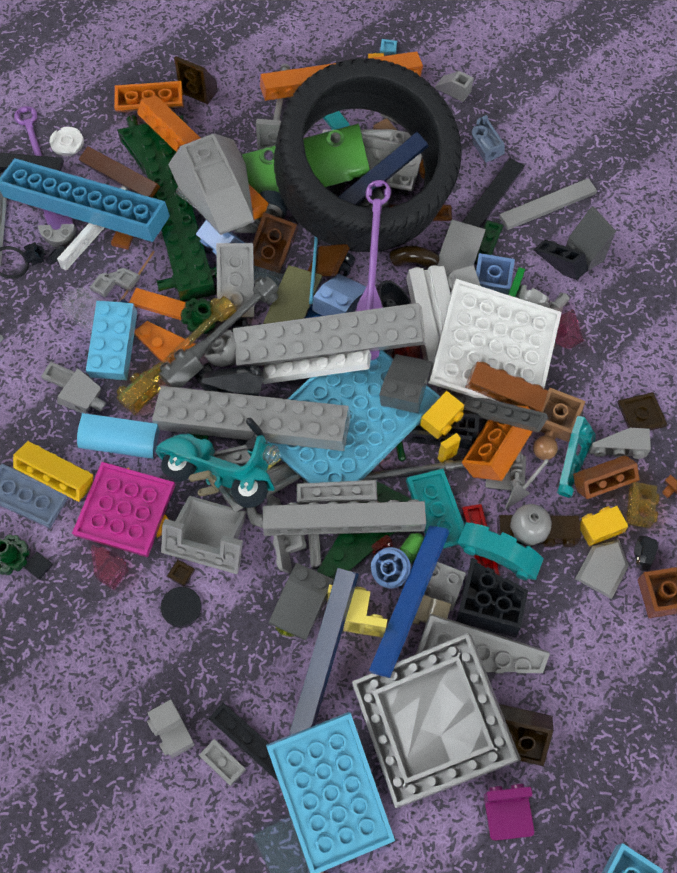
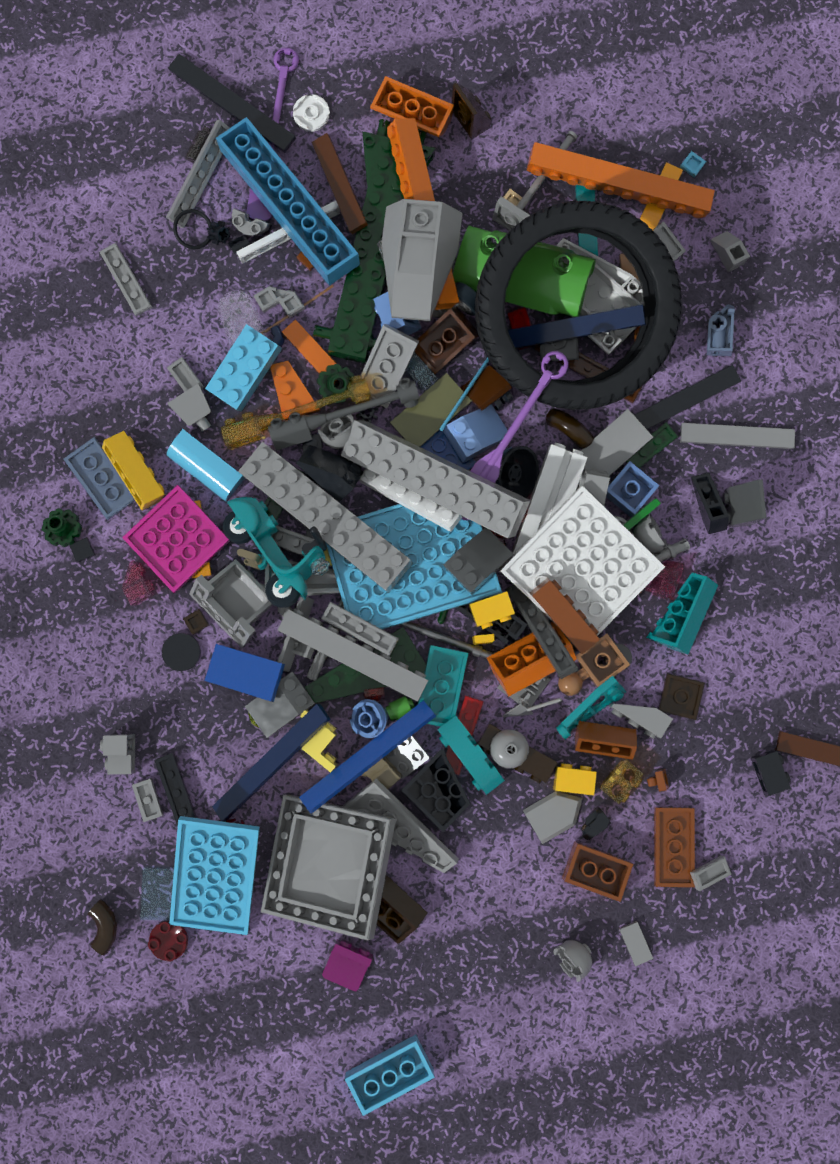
camera: 25 degrees right, 20 degrees up
(252, 589) = (244, 672): none -> blue tile
(601, 347) = (685, 615): none -> teal wedge

